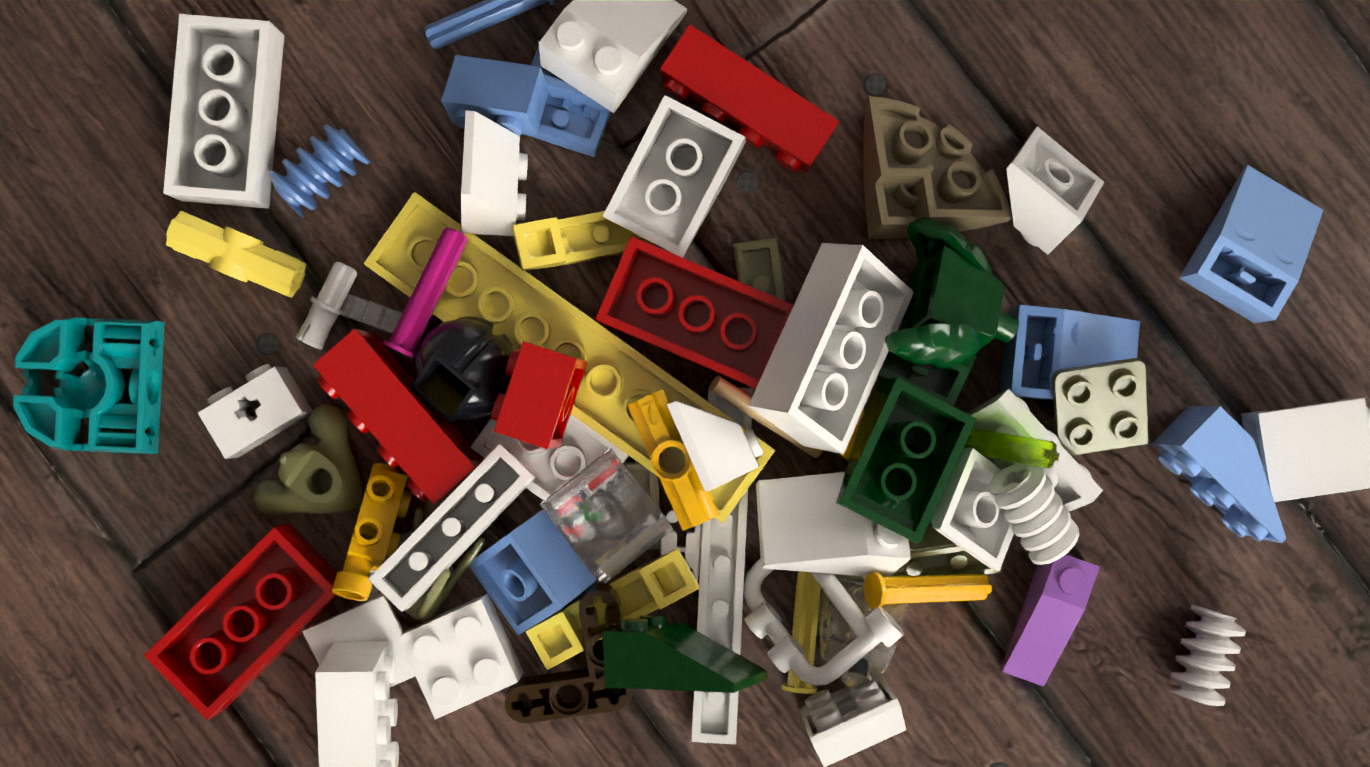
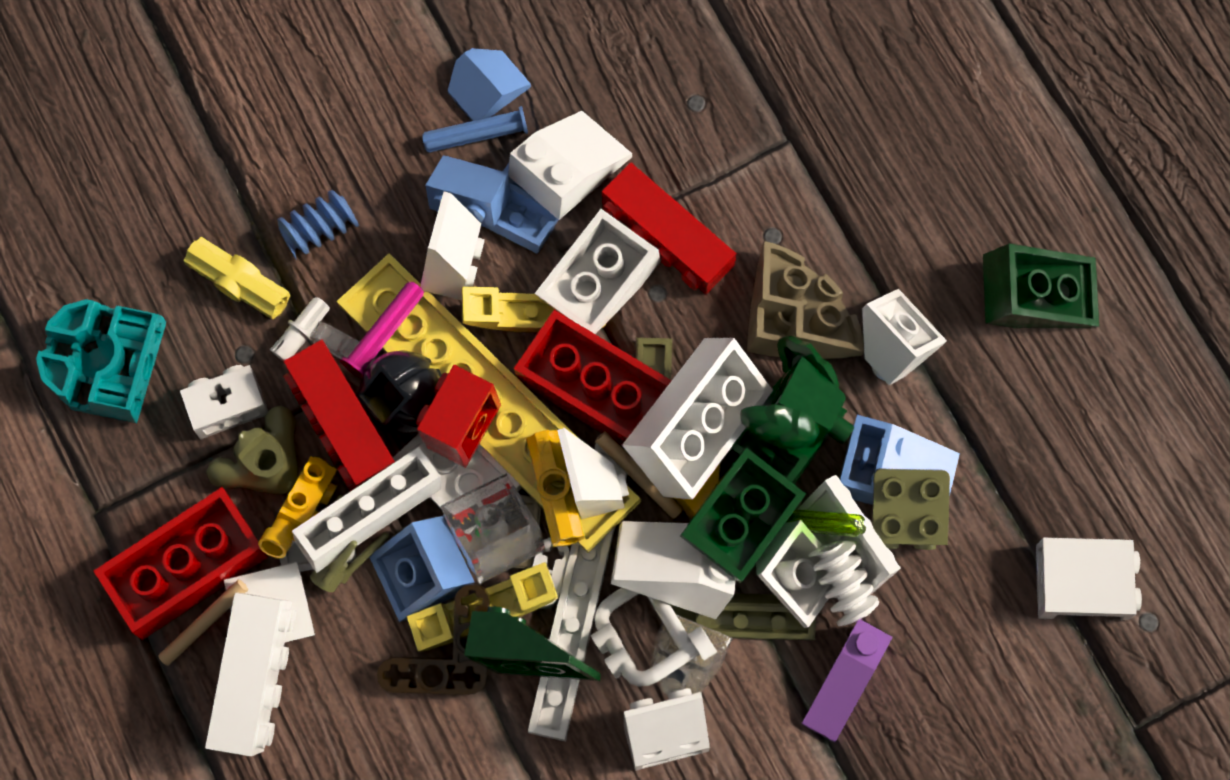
camera: 10 degrees right, 15 degrees down
(223, 111) = (253, 169): white brick -> none
(290, 682) = (202, 623): none -> tan bar
(461, 656) = (349, 624): white brick -> none
(804, 627) = (640, 653): light yellow axle -> none
(924, 588) = (748, 634): yellow axle -> none
(1207, 656) = (975, 733): white piece -> none
(1209, 99) = (1039, 288): none -> dark green slope
(1223, 468) = (1005, 572): light blue slope -> none
(1254, 247) = (1059, 408): light blue slope -> none

